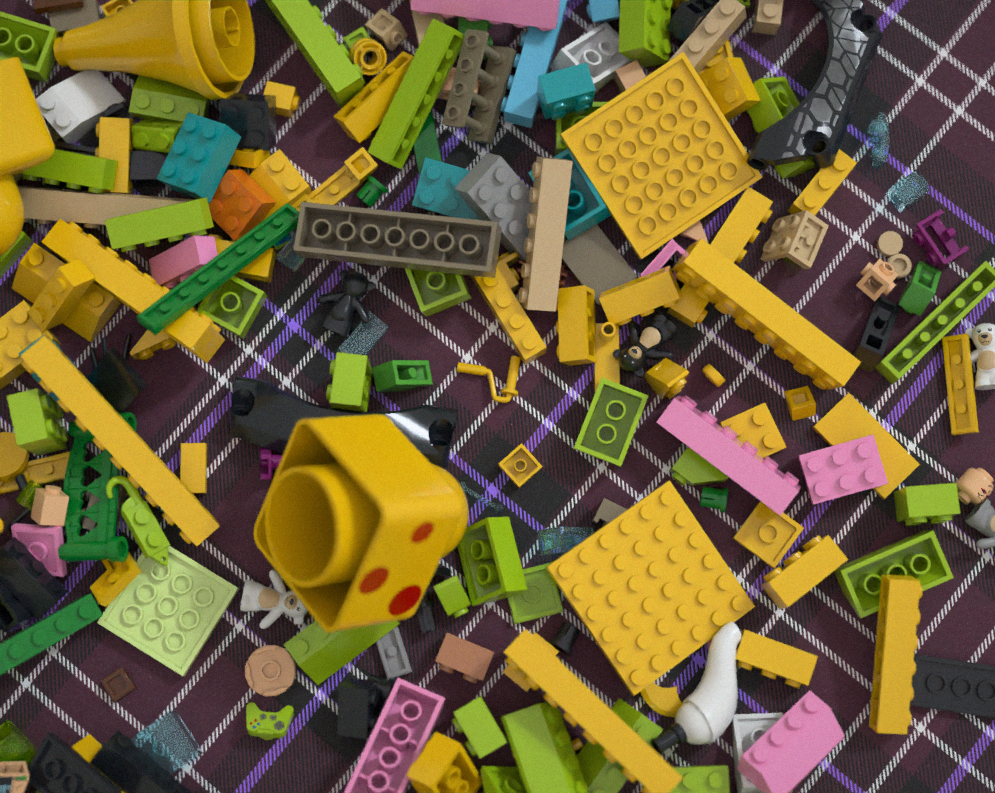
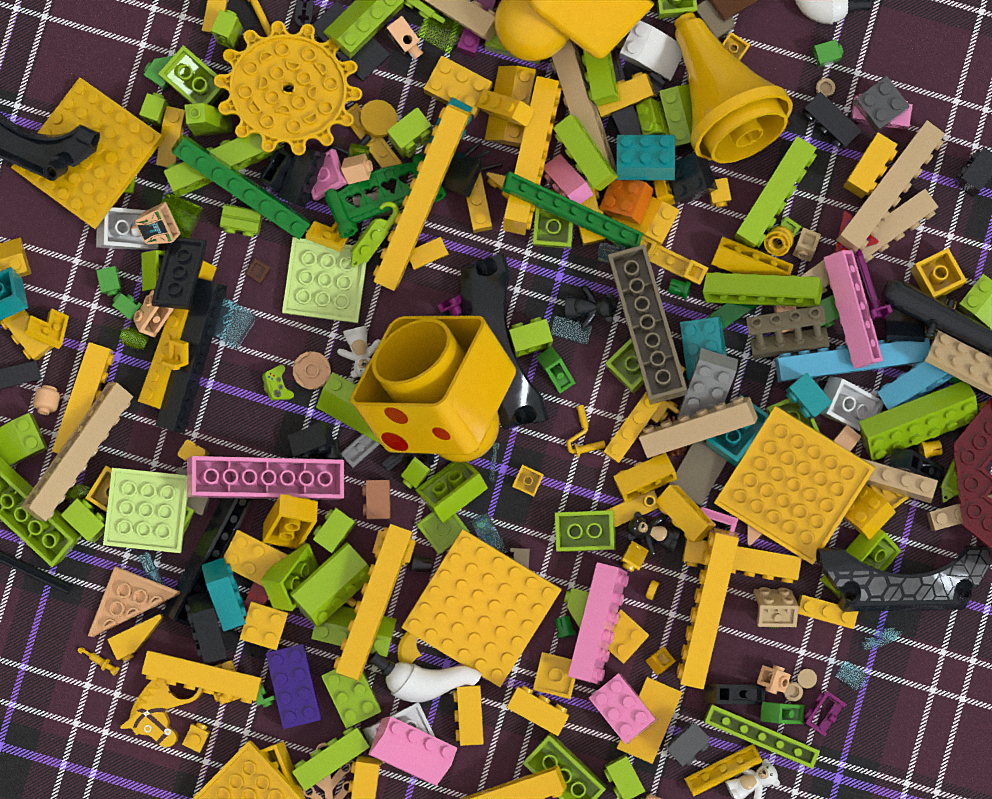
camera: 70 degrees right, 5 degrees up
(46, 677) = (240, 220): none -> lime brick
(168, 382) = (479, 208): none -> yellow brick
(915, 410) = (688, 743): none -> dark grey brick

